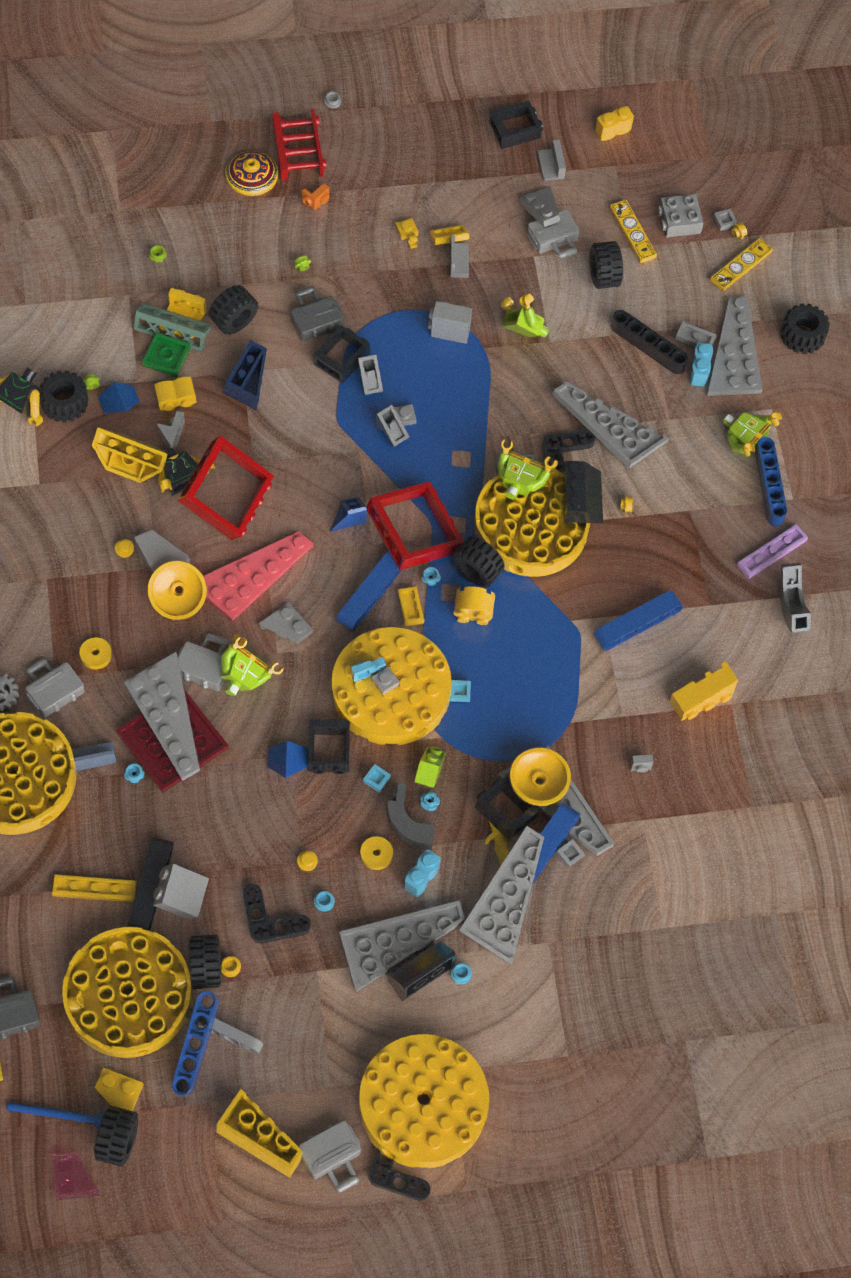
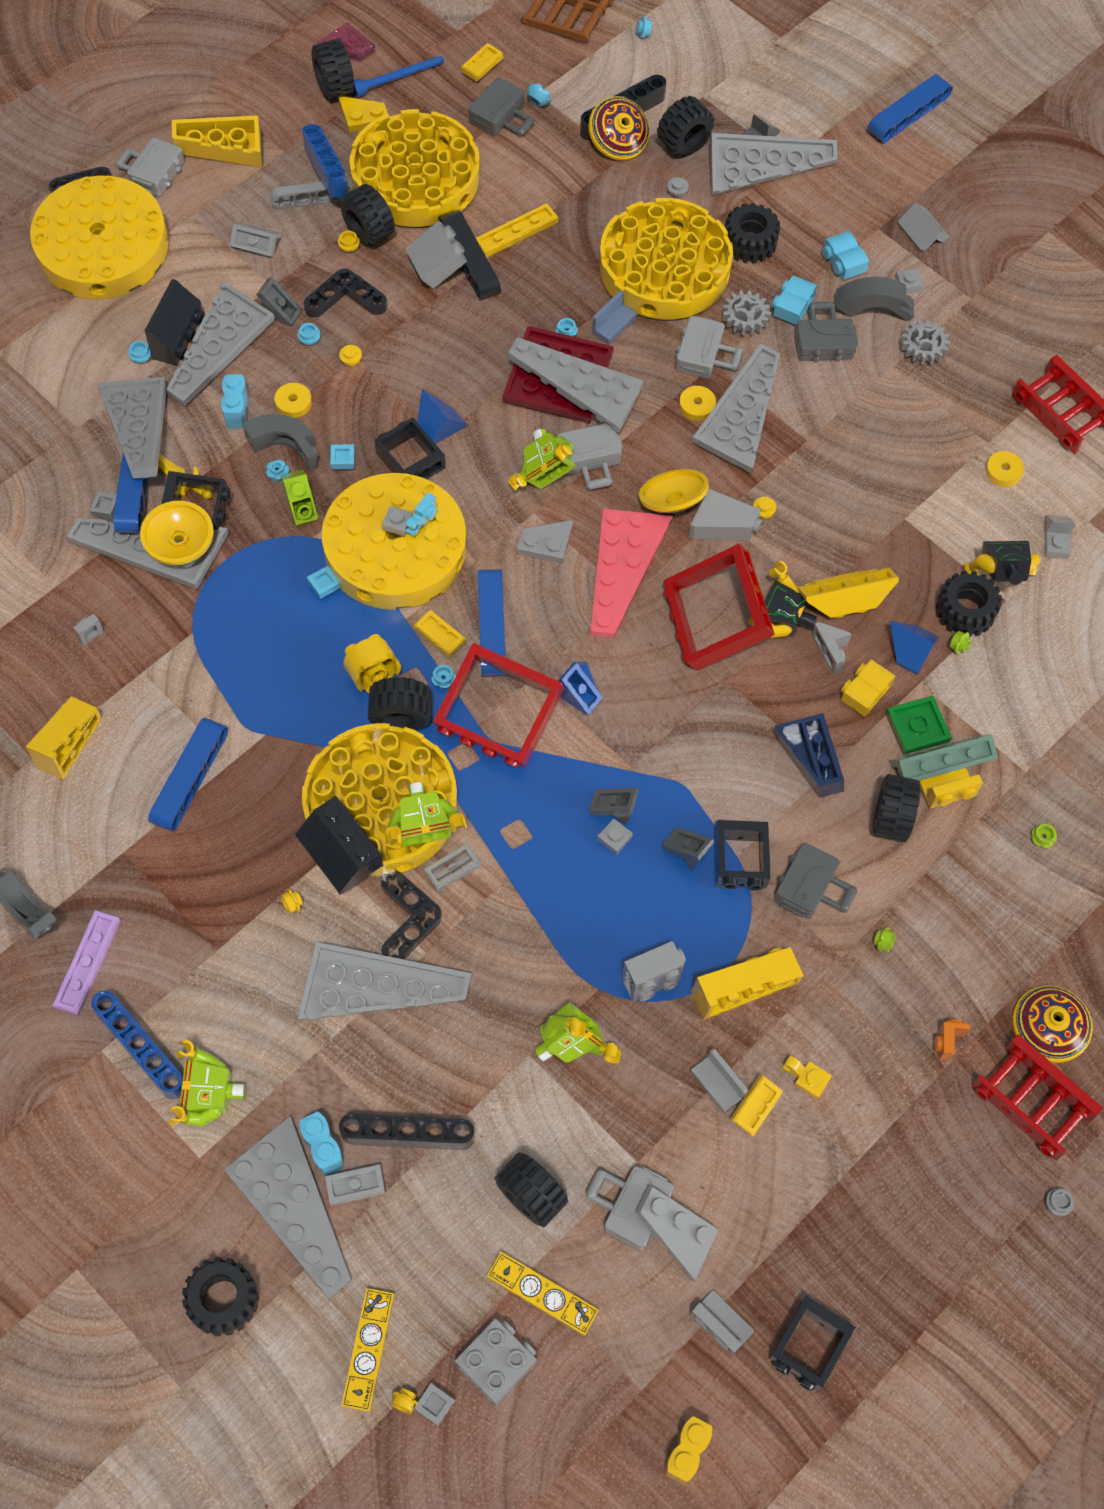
camera: 145 degrees right, 0 degrees up
(78, 620) = (739, 416): none -> light grey wing
(298, 1020) = (254, 238): none -> light grey panel
(328, 940) = (279, 302): none -> dark grey slope
(402, 288) = (746, 982): none -> yellow wedge

